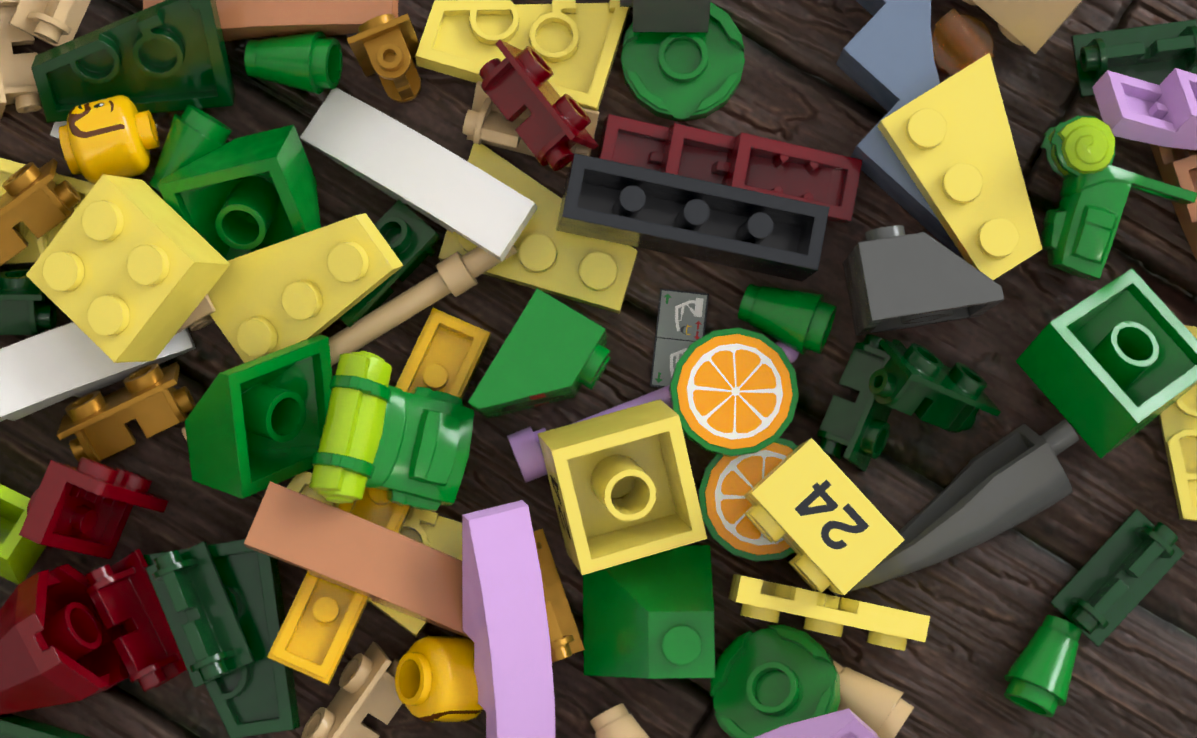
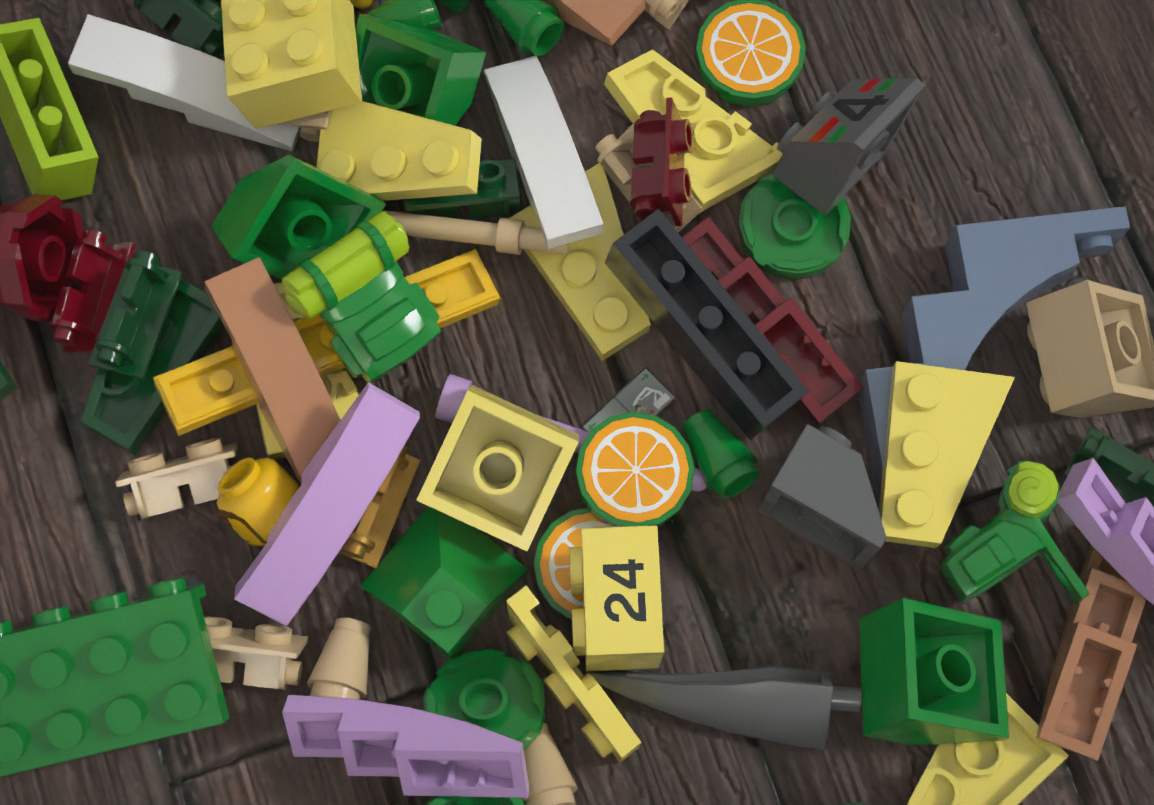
camera: 30 degrees right, 10 degrees down
(86, 506) = (123, 184): dark red bracket -> none
(102, 421) = (185, 146): pearl gold hinge -> none
(387, 48) = (590, 53): pearl gold hinge -> none
(542, 359) = (515, 336): green slope -> none
(862, 425) = (751, 551): dark green hinge -> none
(949, 393) = (776, 561): dark green hinge -> none
(960, 42) = (1005, 359): clear orange plate -> none

